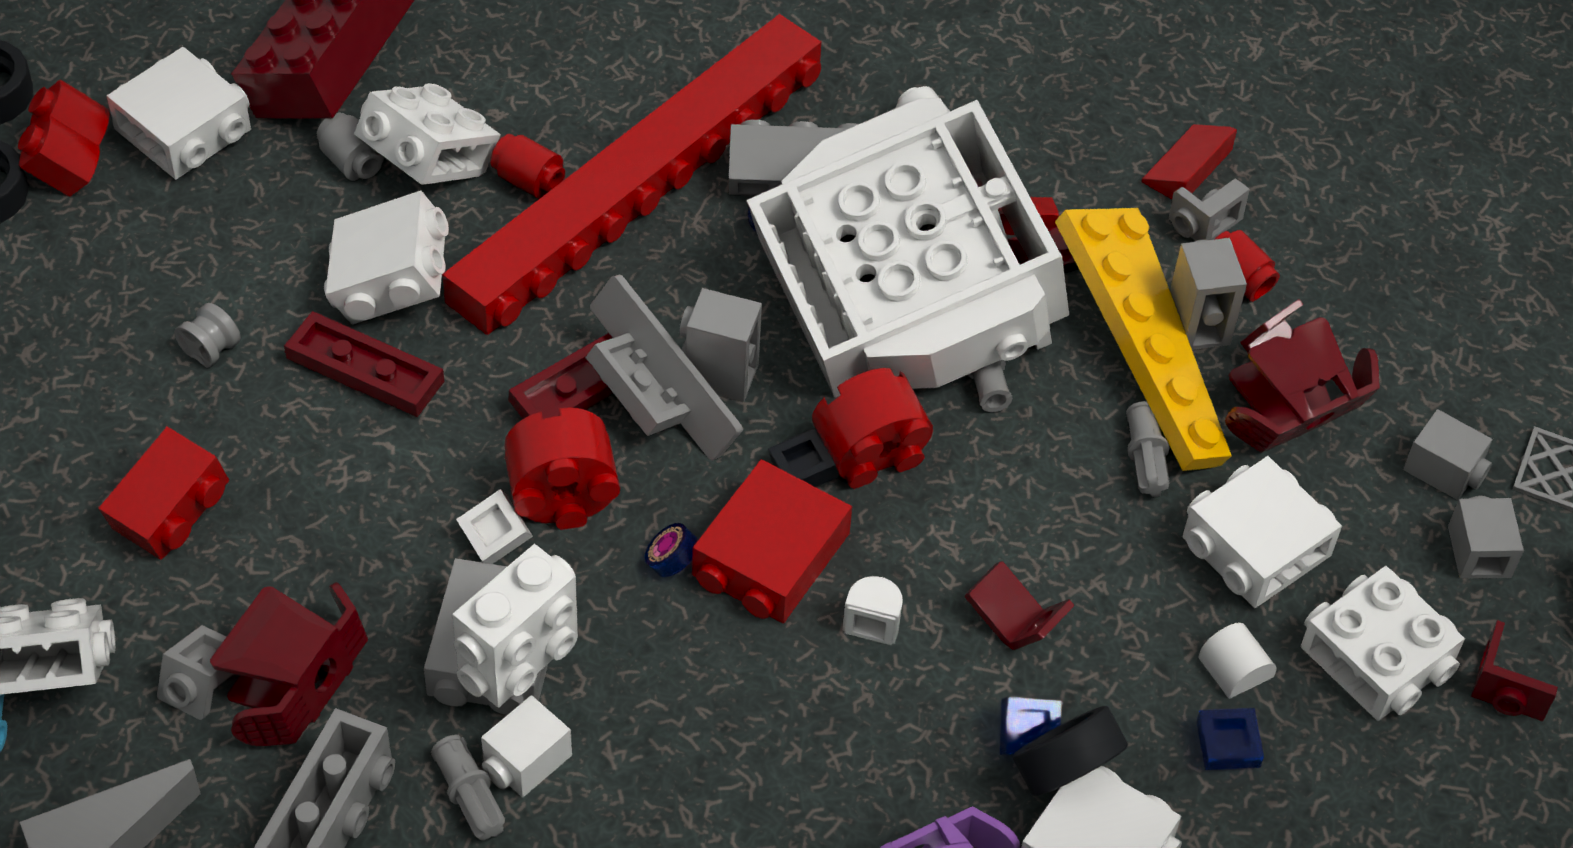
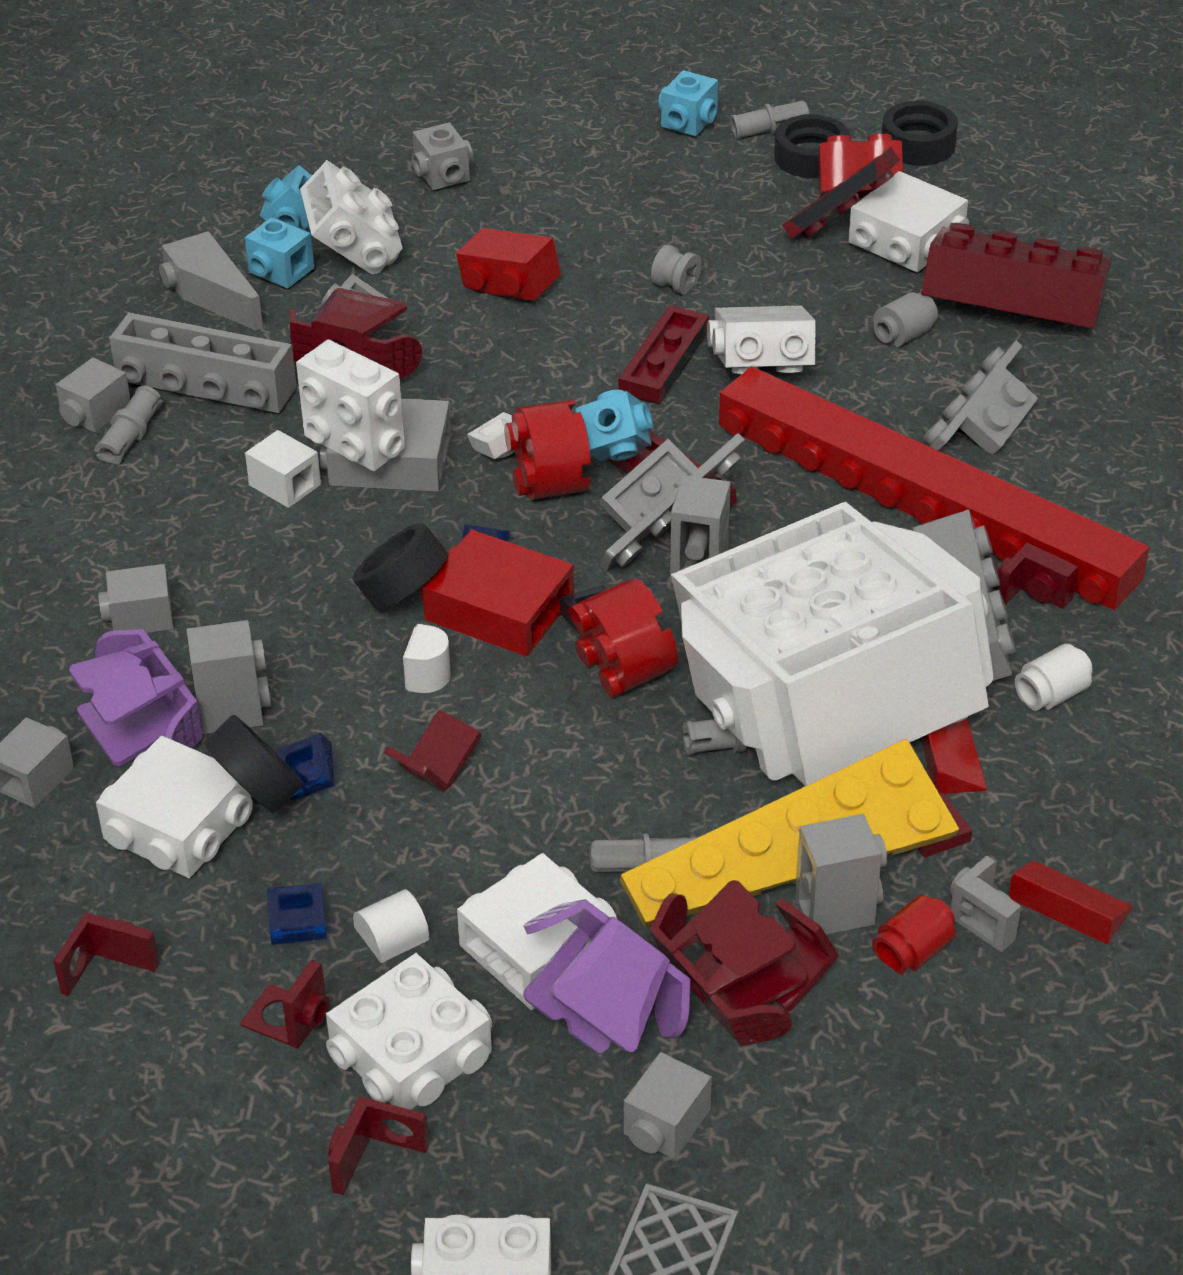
camera: 90 degrees right, 10 degrees down
(71, 746) = (279, 252): none -> medium azure brick
(143, 149) = (843, 195): none -> plate
(427, 133) = (914, 343): white brick -> none
(468, 786) = (232, 451): light grey axle -> none
(515, 106) = (991, 407): none -> light grey bracket
(527, 164) = (912, 412): red brick -> none
(545, 387) = (616, 425): none -> medium azure brick
(704, 633) = (400, 566): none -> black tyre
(792, 100) = (1039, 574): none -> dark red bracket
(919, 778) = (225, 674): none -> light grey brick
(1329, 473) = (609, 983): none -> medium lavender piece
(1359, 728) = (303, 1007): none -> dark red bracket
(1485, 537) = (556, 1133): light grey brick -> none

